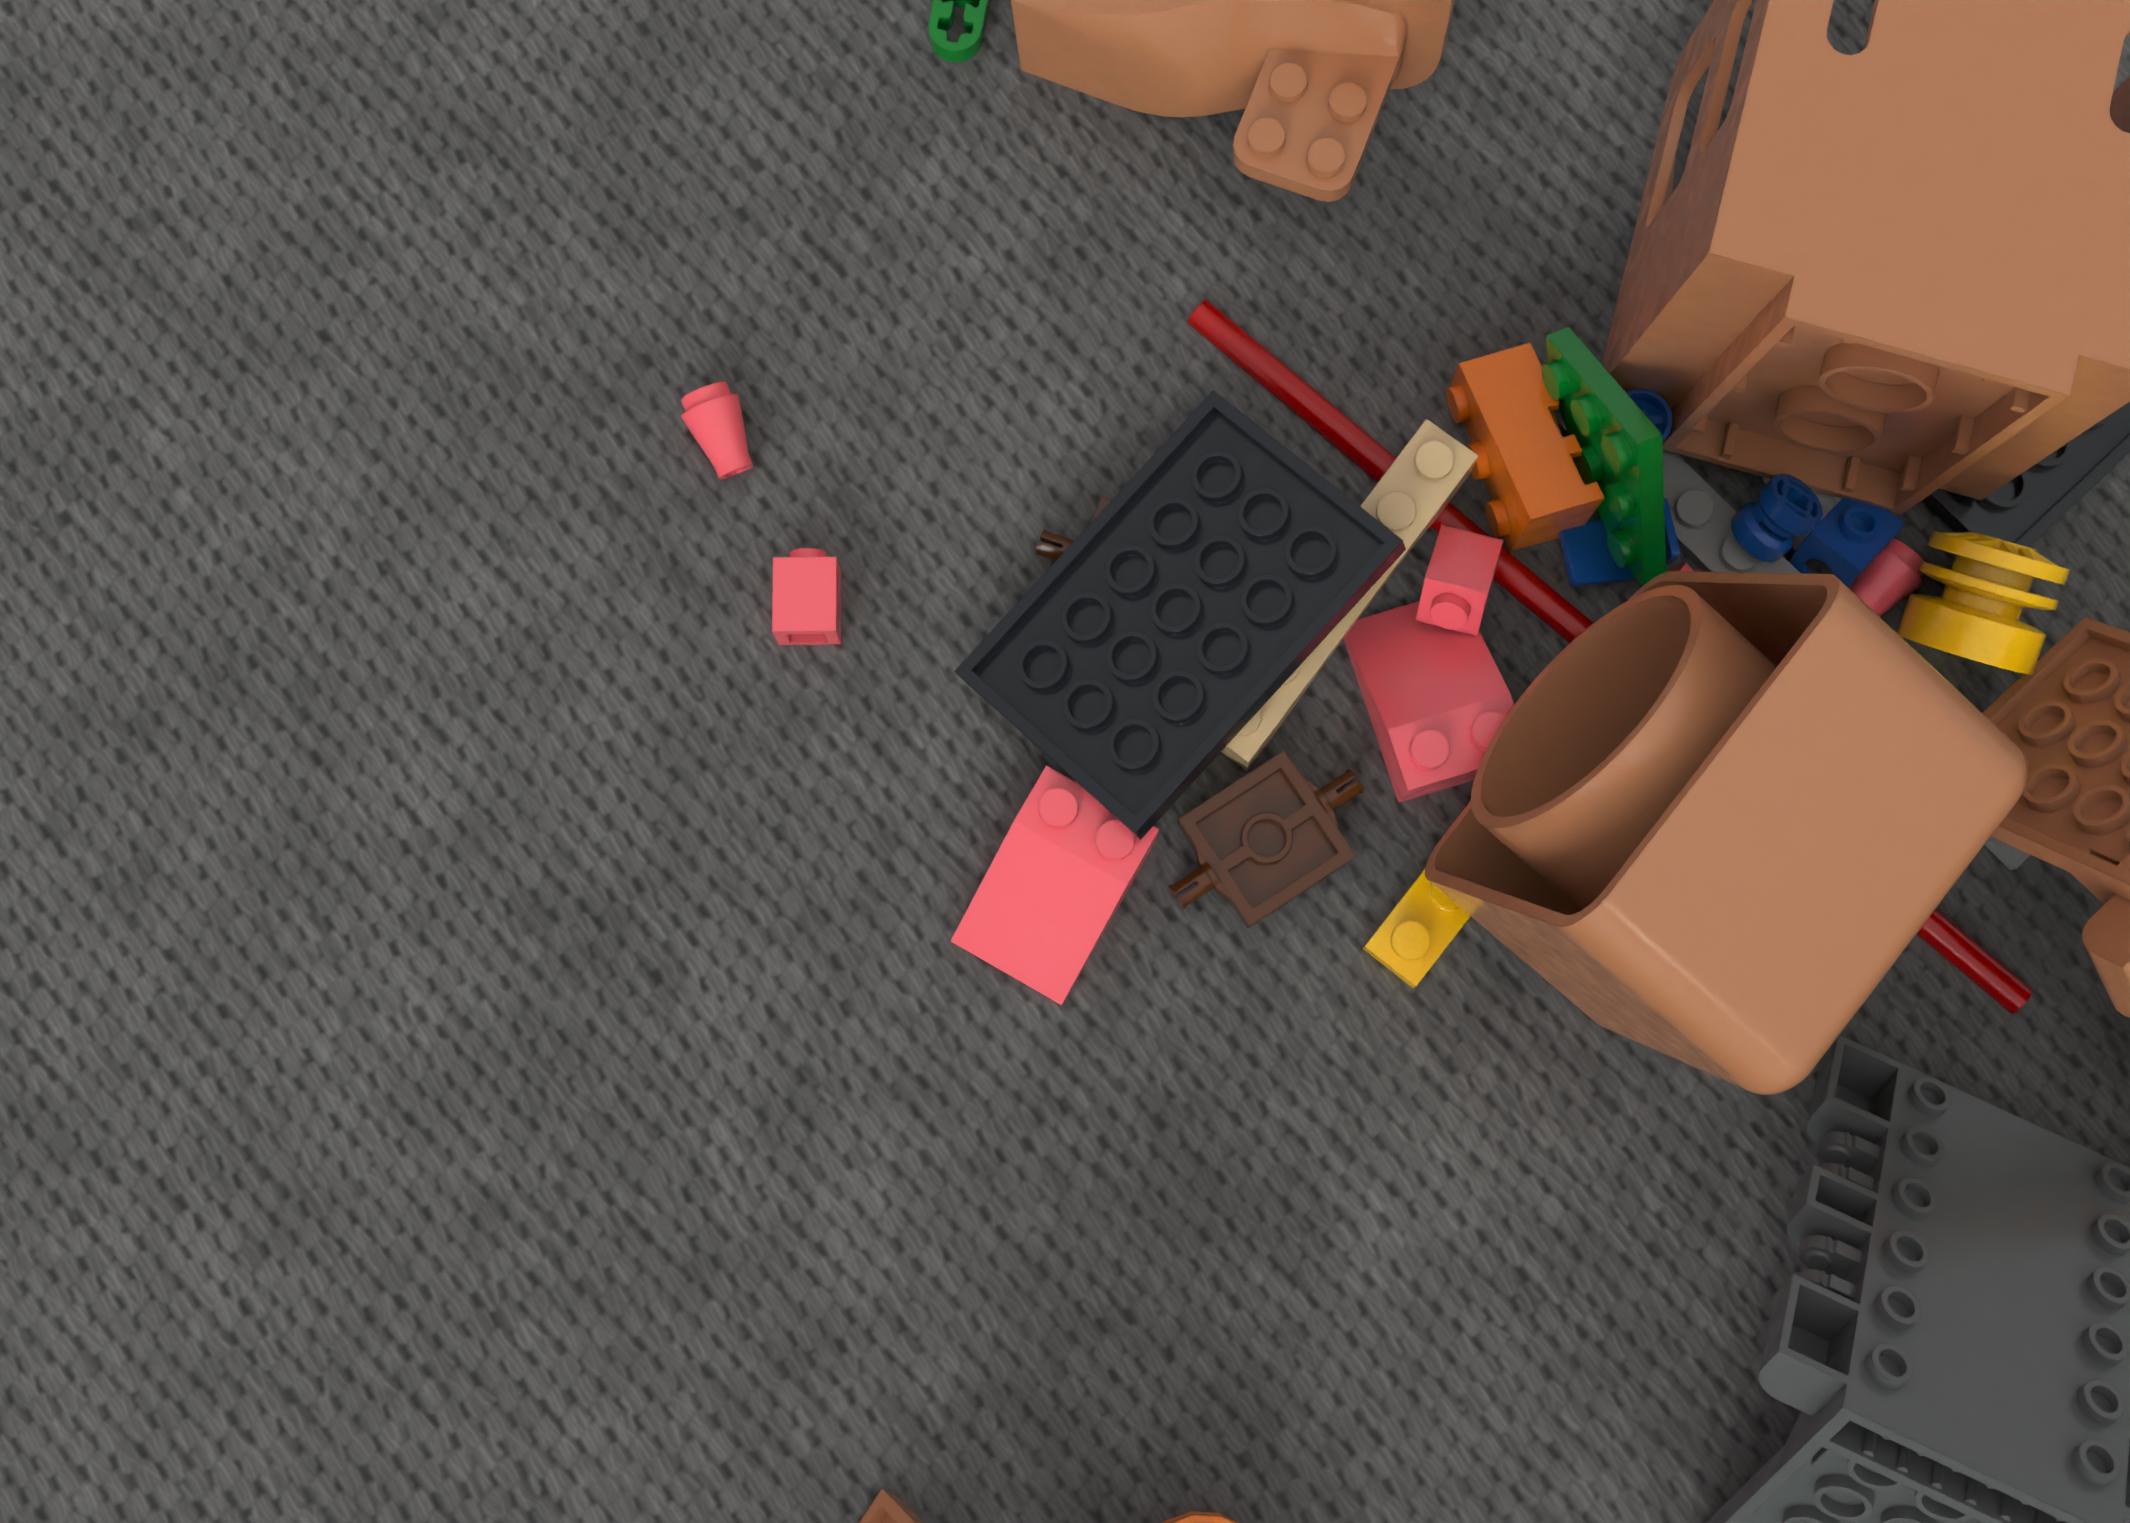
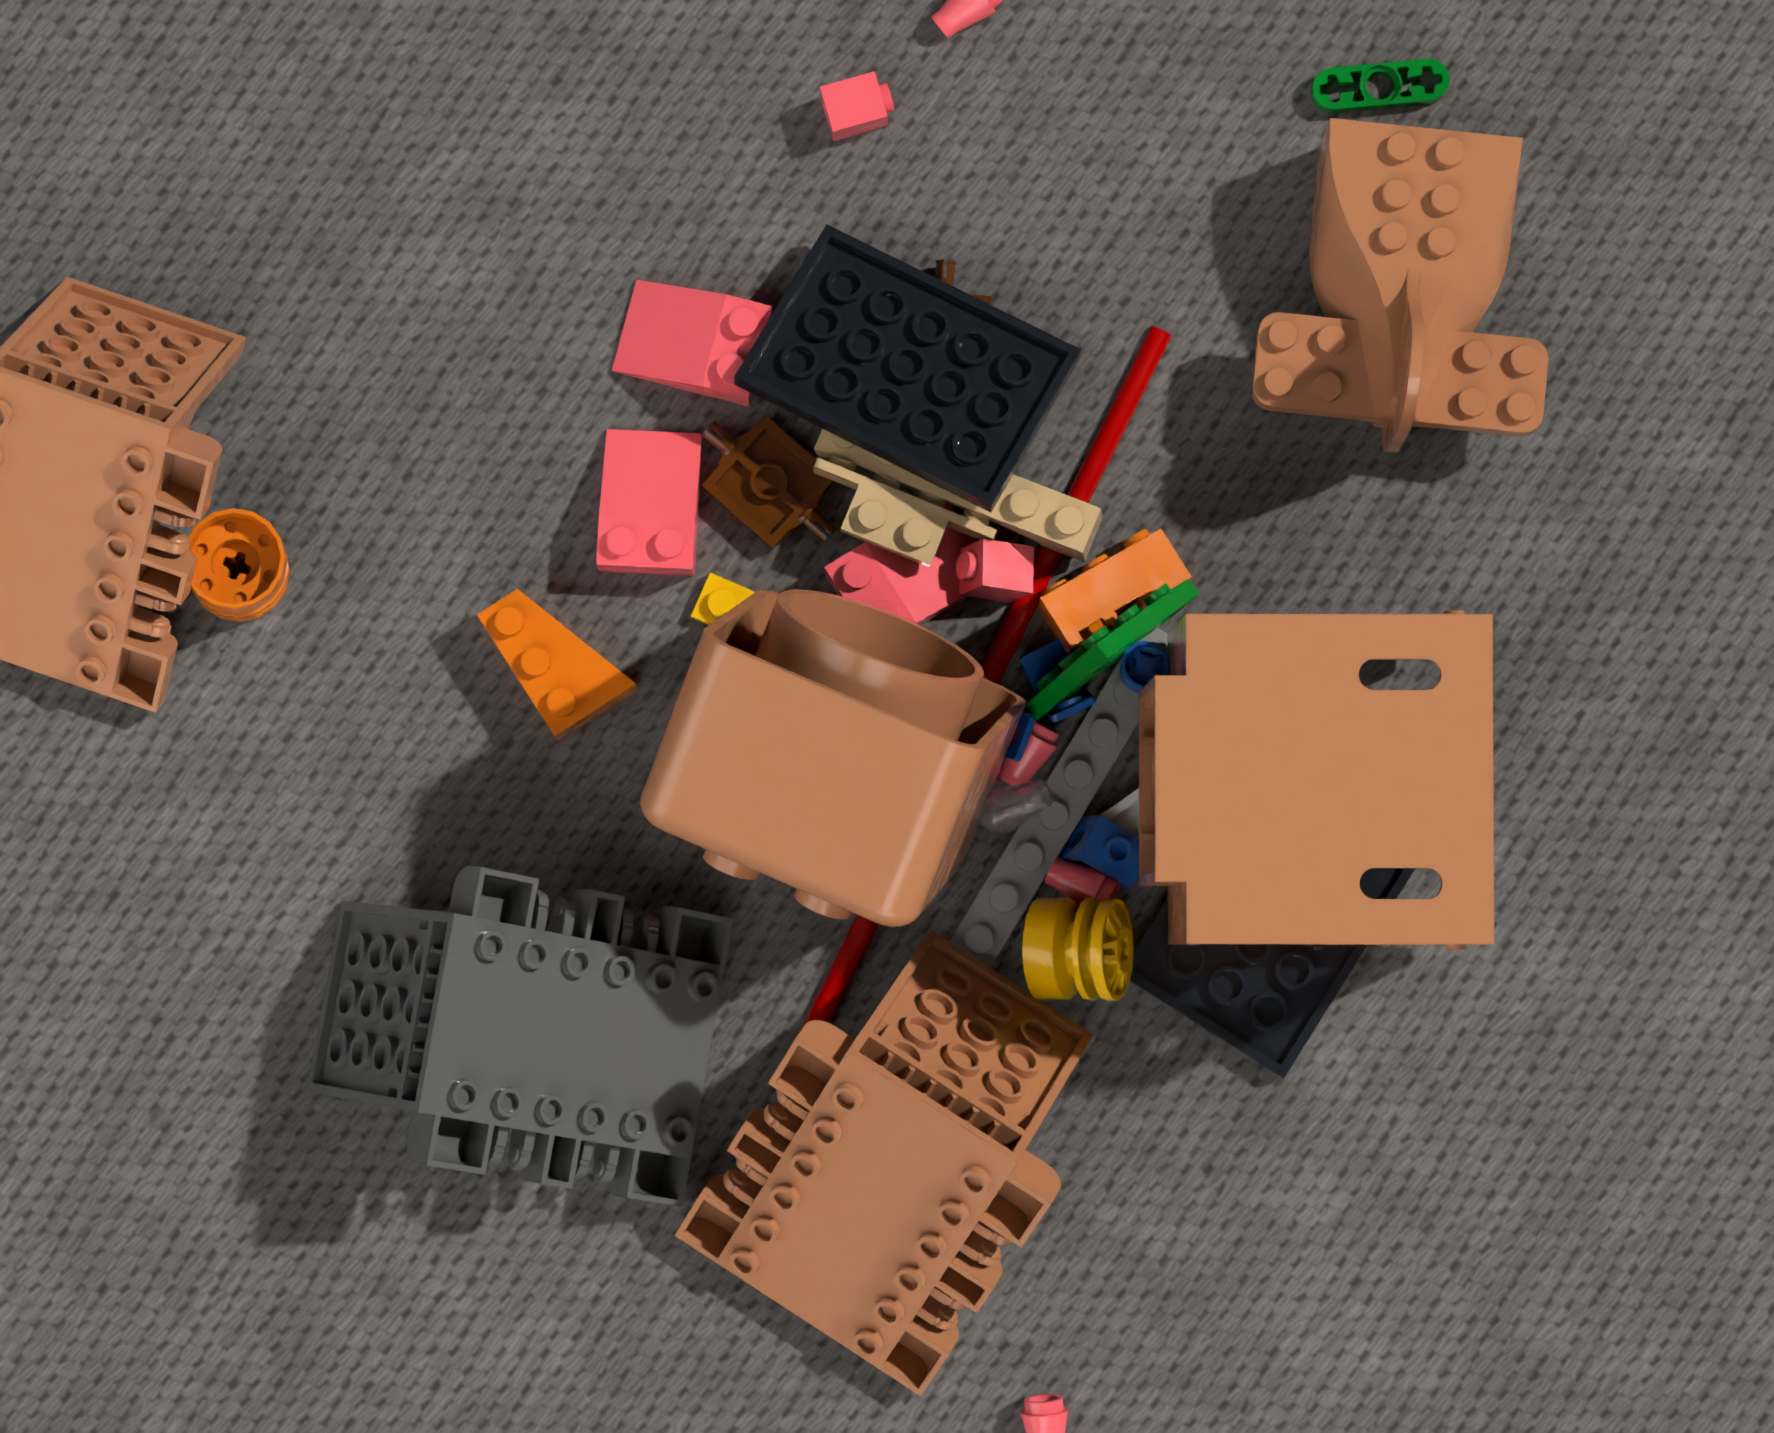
camera: 75 degrees right, 5 degrees up
(1253, 999) = (649, 502): none -> coral slope
(1370, 683) = (897, 519): none -> tan bracket
(1443, 1184) = (553, 665): none -> orange wedge
(1781, 513) = (1105, 789): blue wheel -> none

